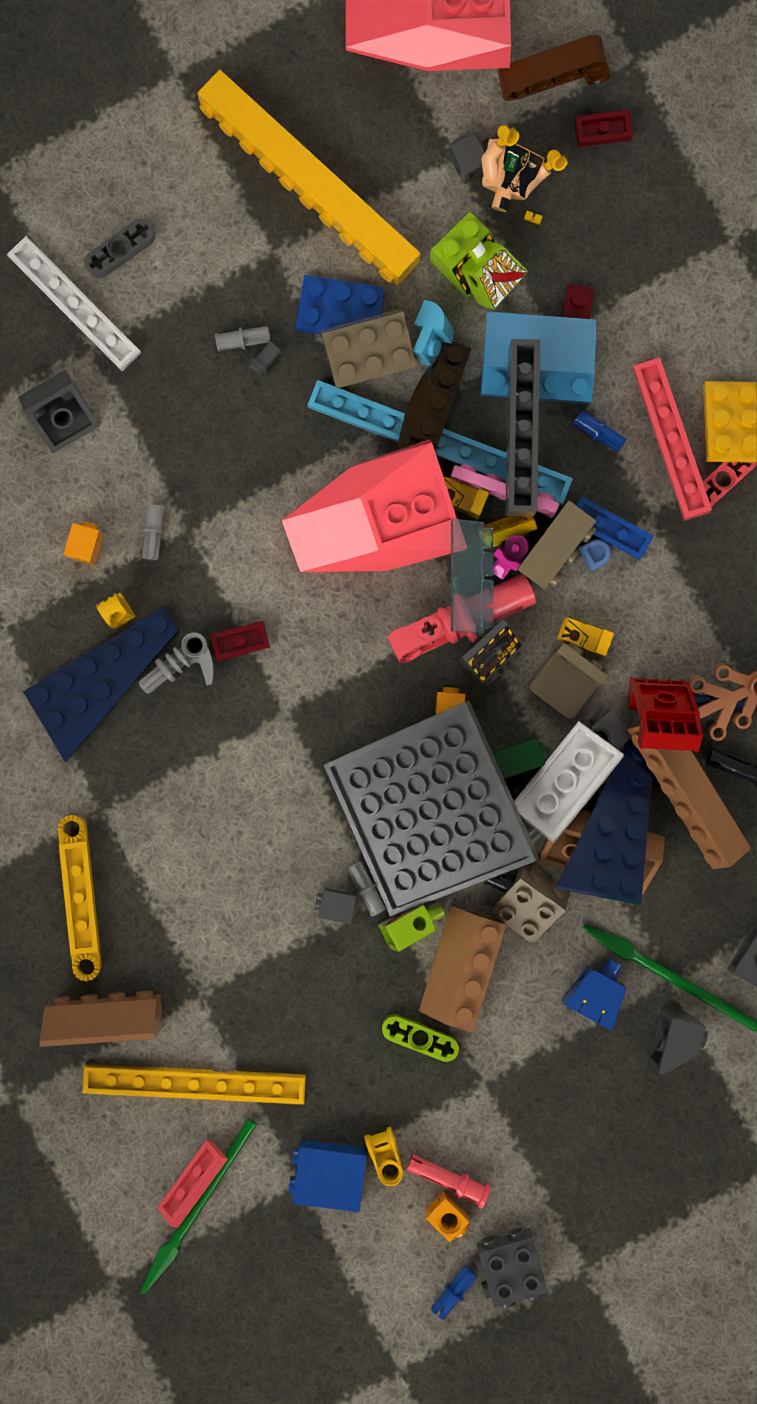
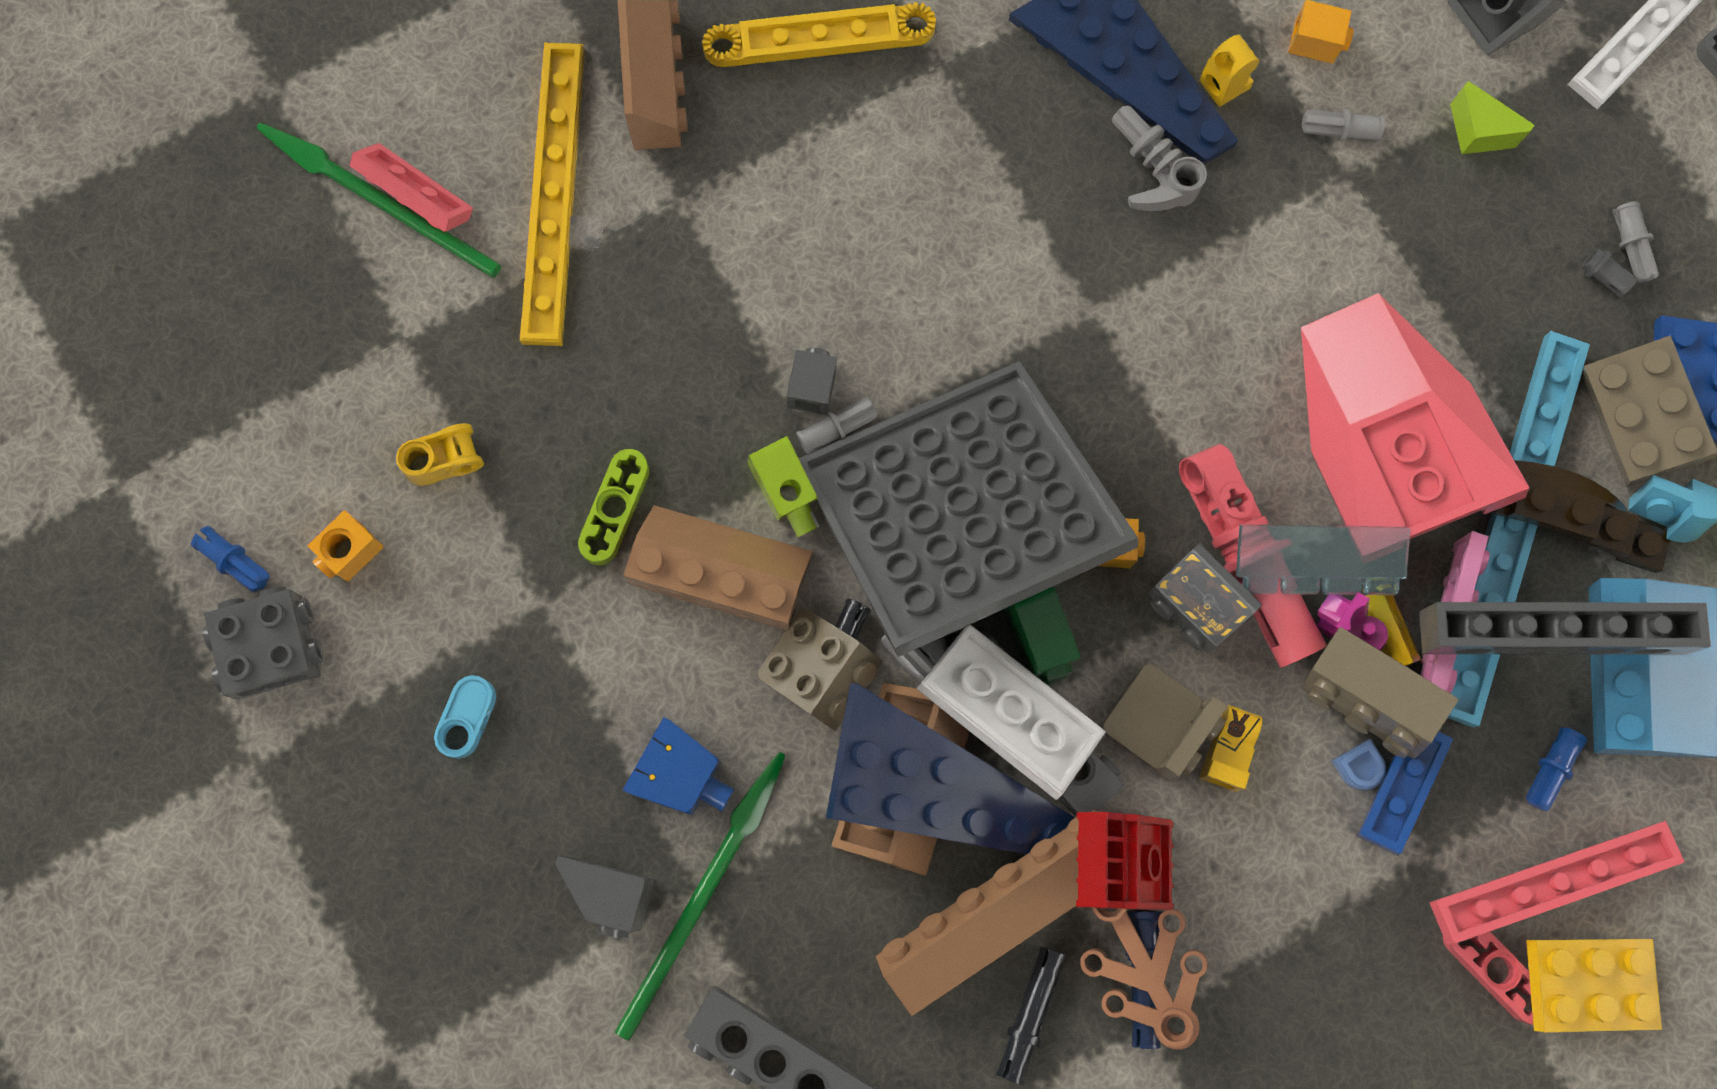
camera: 90 degrees right, 10 degrees down
(154, 435) = (1485, 122): none -> lime slope
(240, 641) = (1194, 243): dark red plate -> none
(328, 1175) = (413, 374): blue brick -> none
(459, 1184) = (391, 566): coral pin -> none
(466, 498) = (1433, 561): yellow leg -> none
(553, 1129) = (469, 707): none -> medium azure piece

